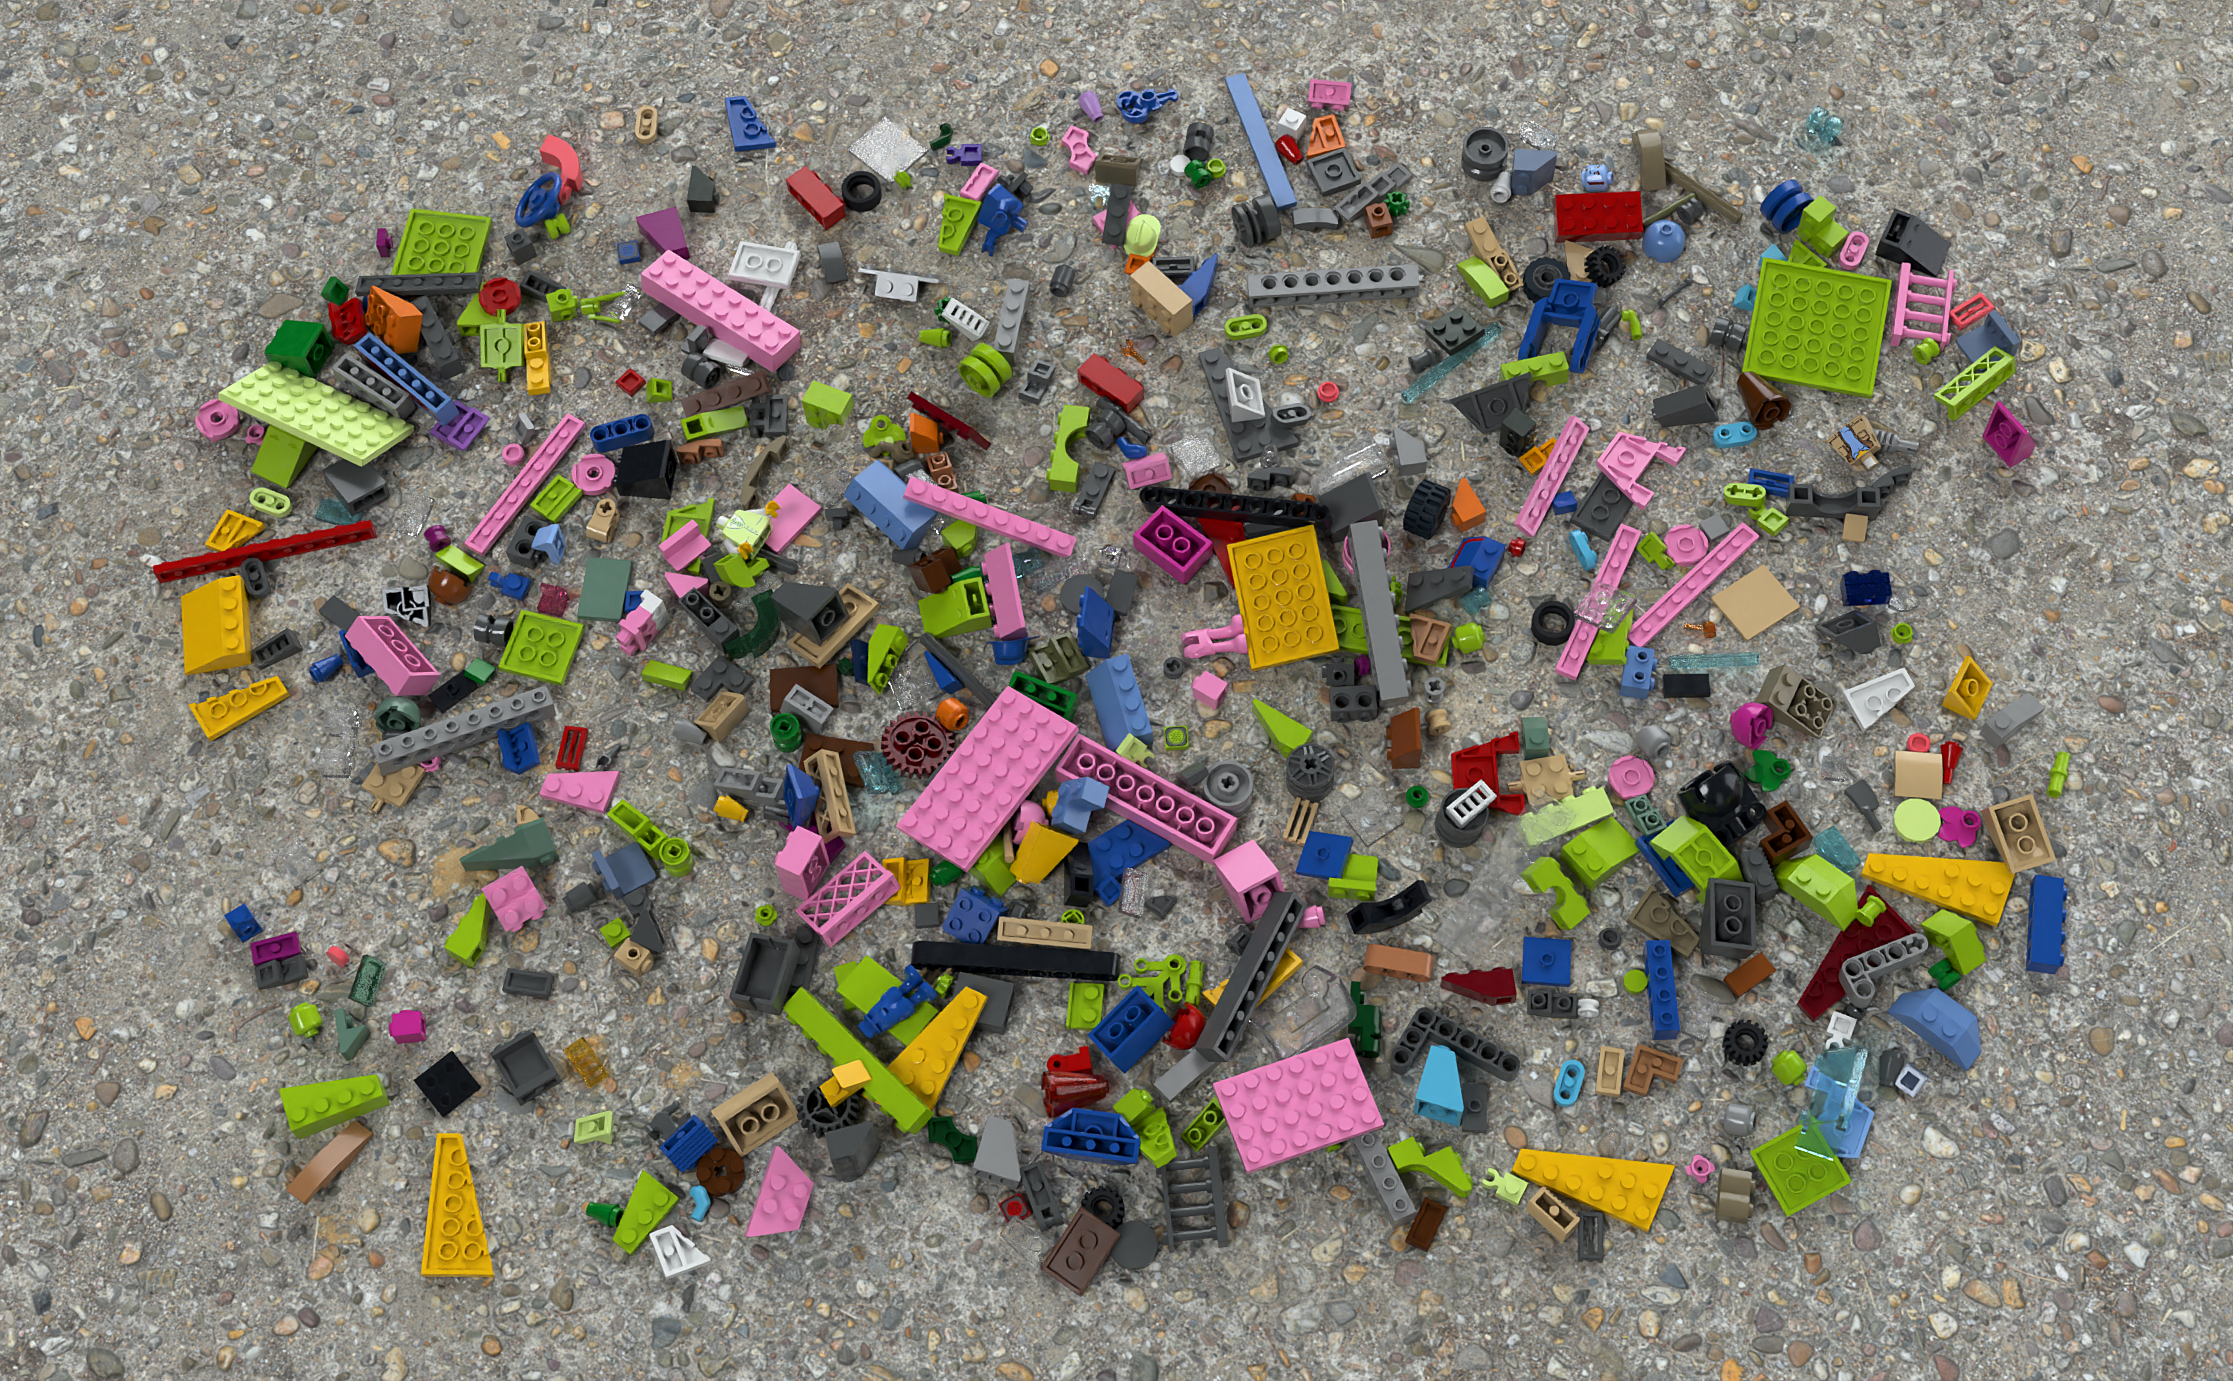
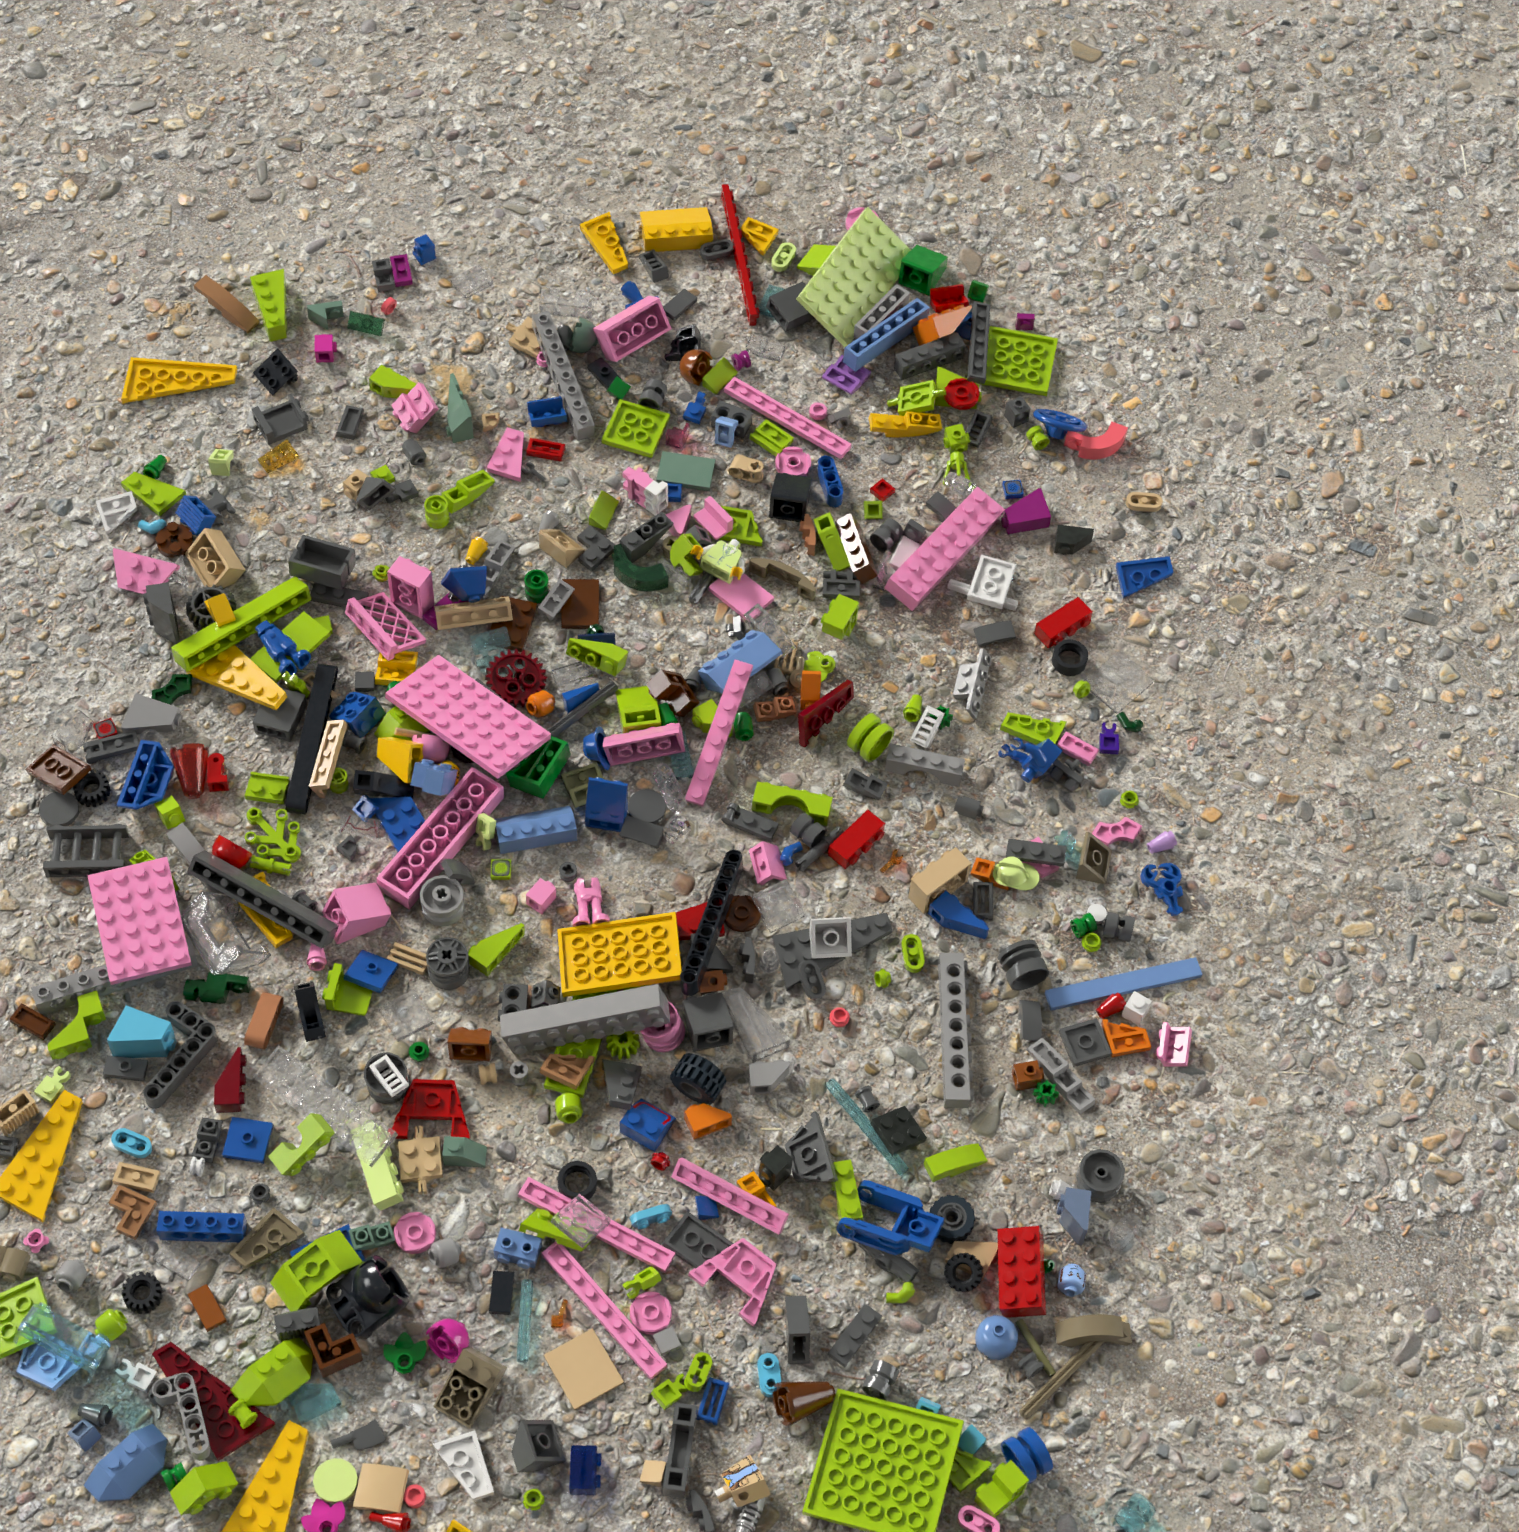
camera: 85 degrees right, 5 degrees down
(305, 1020) = (340, 287): lime head -> none
(623, 870) = (431, 476): sand blue bracket -> none
(810, 609) = (637, 596): dark grey slope -> none
(860, 609) = (633, 623): tan plate -> none
(1131, 1029) = (234, 812): blue slope -> none
(1156, 1138) = (140, 822): lime wing -> none
(1173, 545) = (684, 874): dark pink brick -> none
(1475, 600) = (607, 1118): clear light blue wheel -> none
(1489, 251) = (981, 1174): tan slope -> none
(1599, 852) = (343, 1194): lime slope -> none
(1635, 982) = (217, 1206): lime tile -> none
(1687, 282) = (949, 1355): dark grey hinge -> none
(1728, 919) = (253, 1287): dark grey slope -> none

